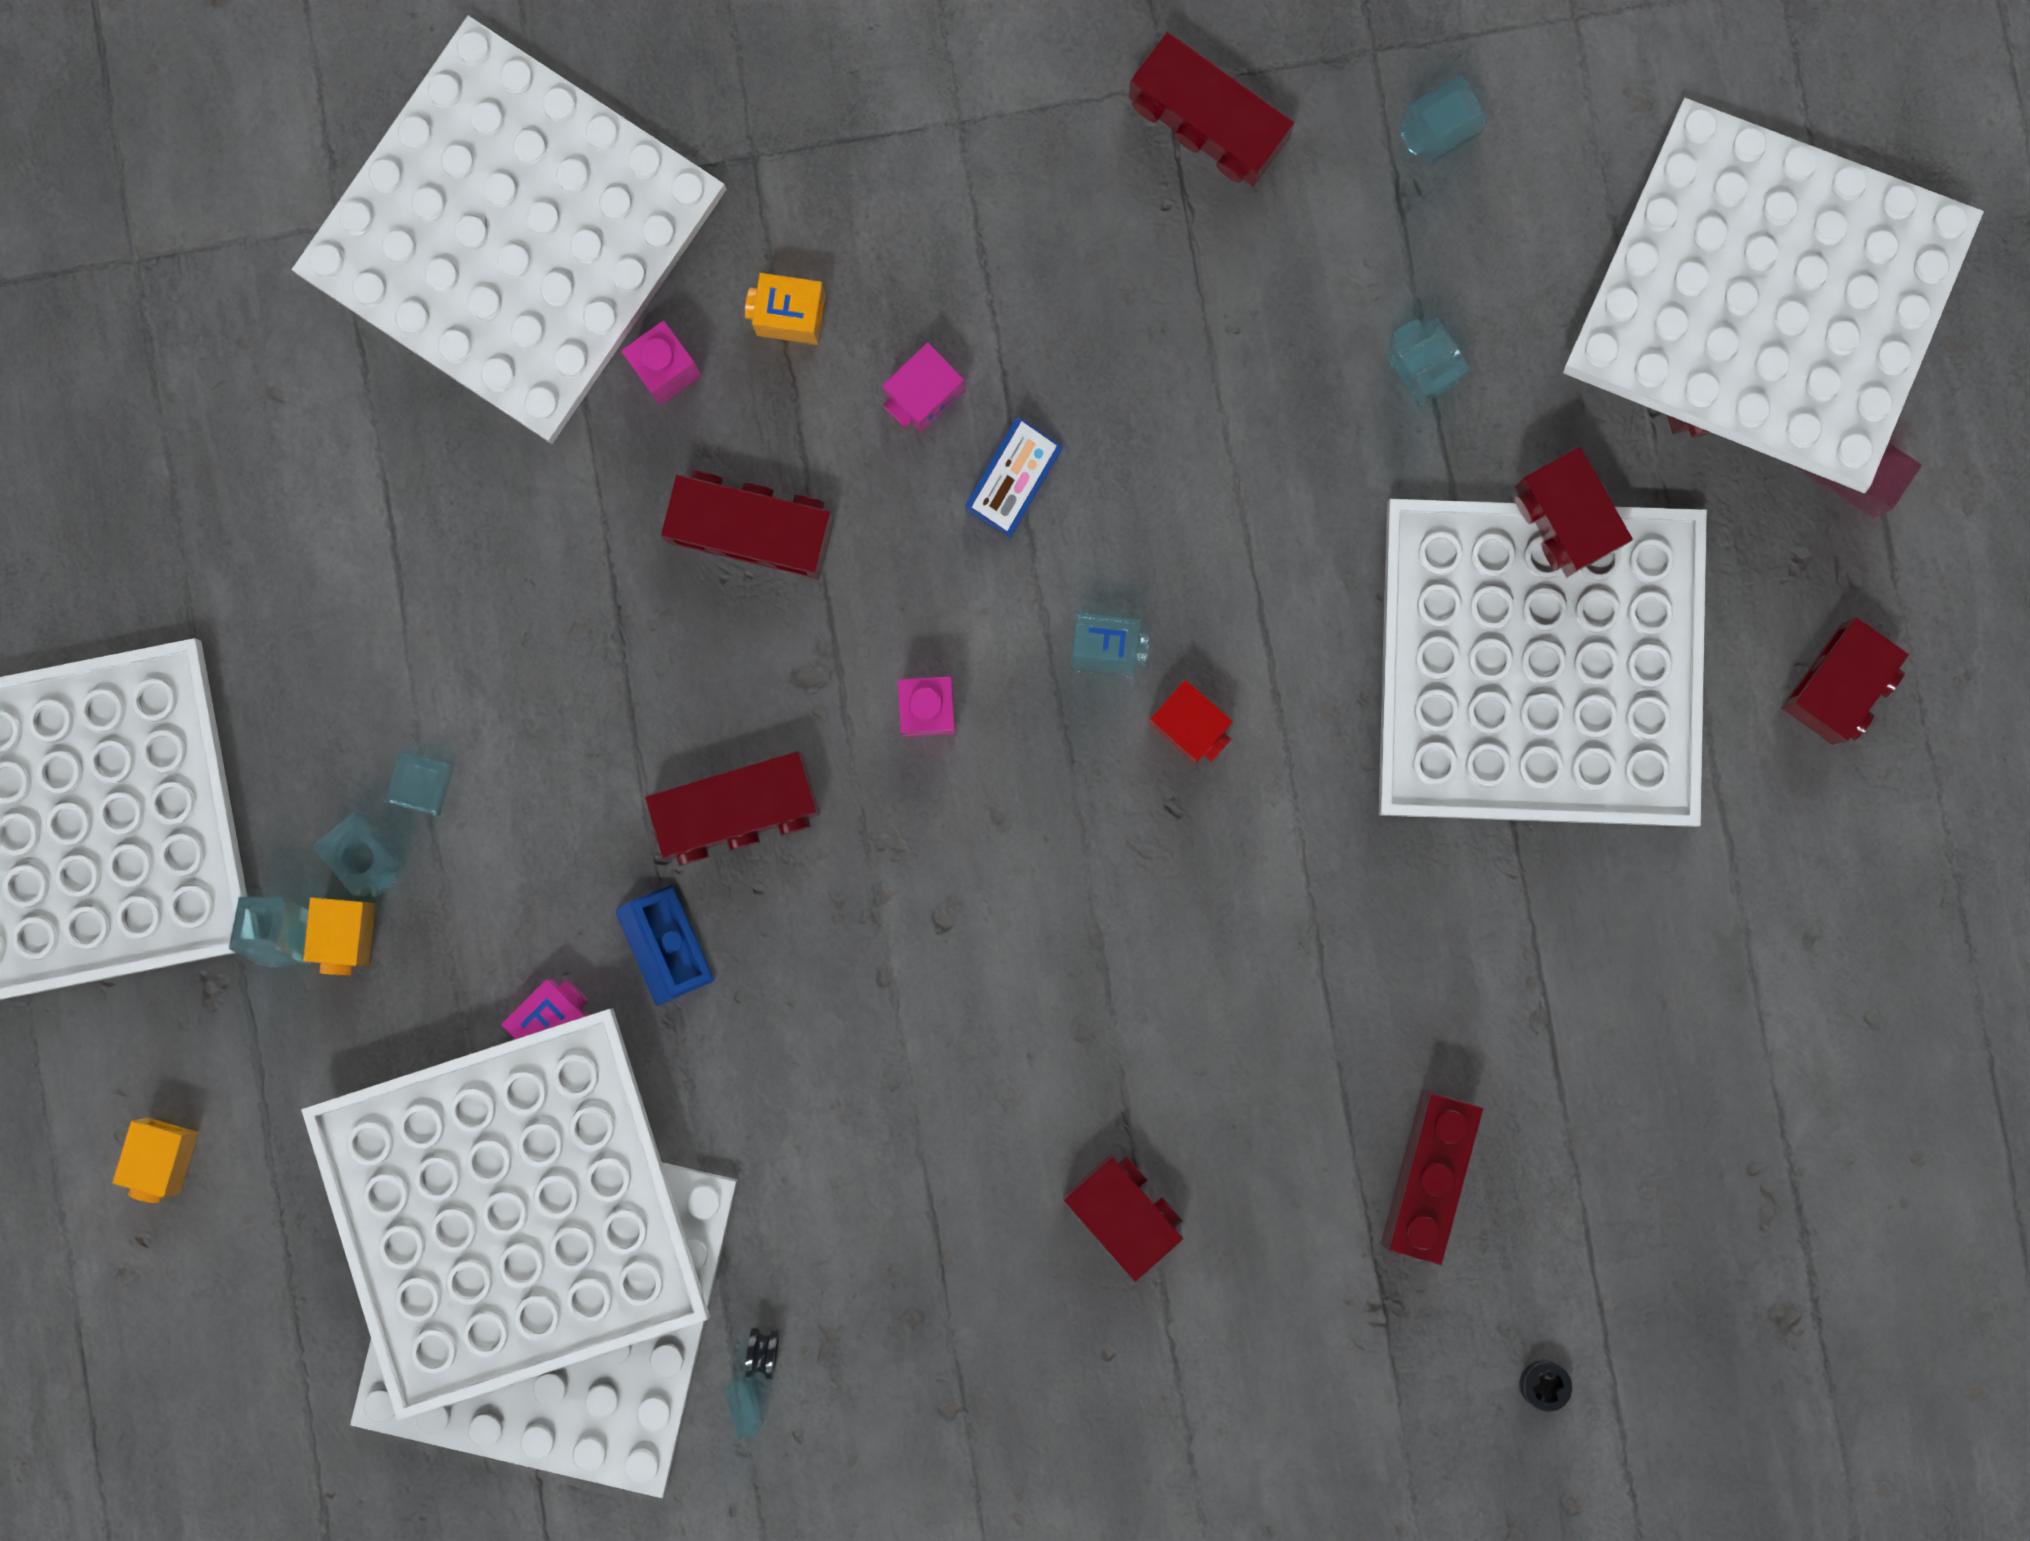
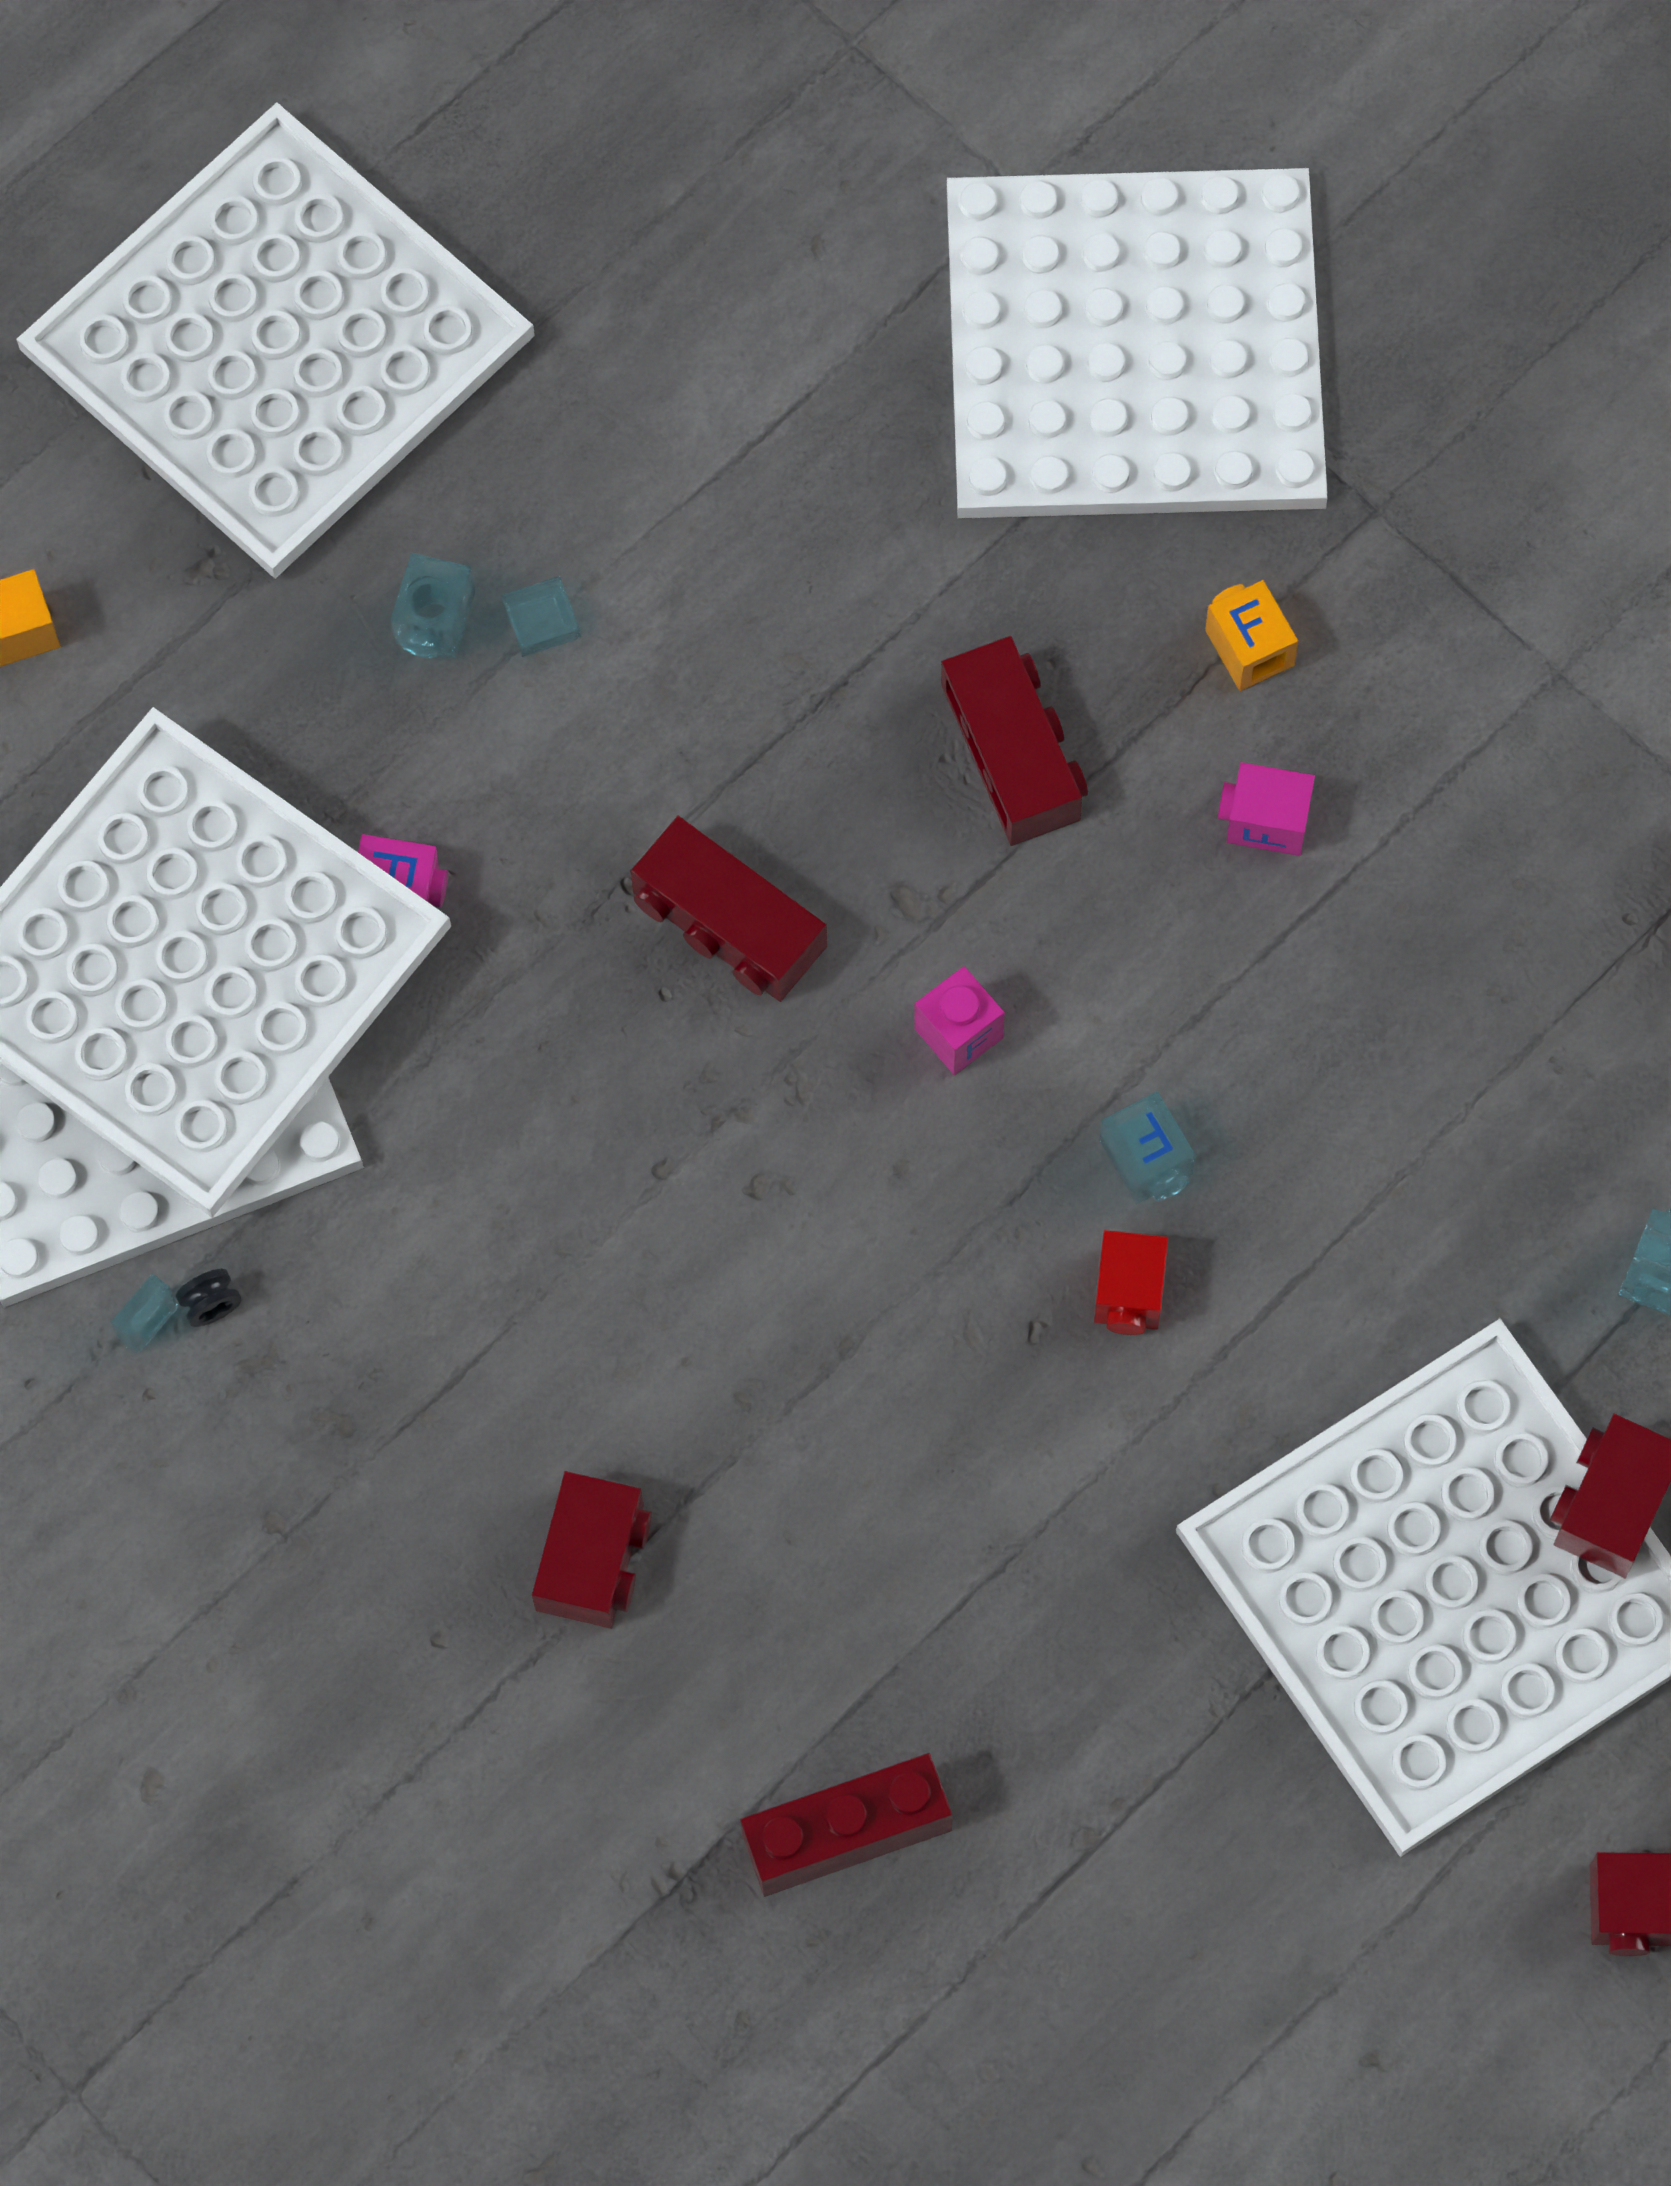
camera: 50 degrees right, 15 degrees down
(270, 931) = (303, 575): clear light blue brick -> none
(339, 934) = (343, 638): light orange brick -> none
(661, 363) = (1109, 556): dark pink brick -> none
(664, 945) = (546, 942): blue slope -> none
(1013, 477) = (1247, 951): slope -> none
(1530, 1378) = (710, 2077): black bush -> none

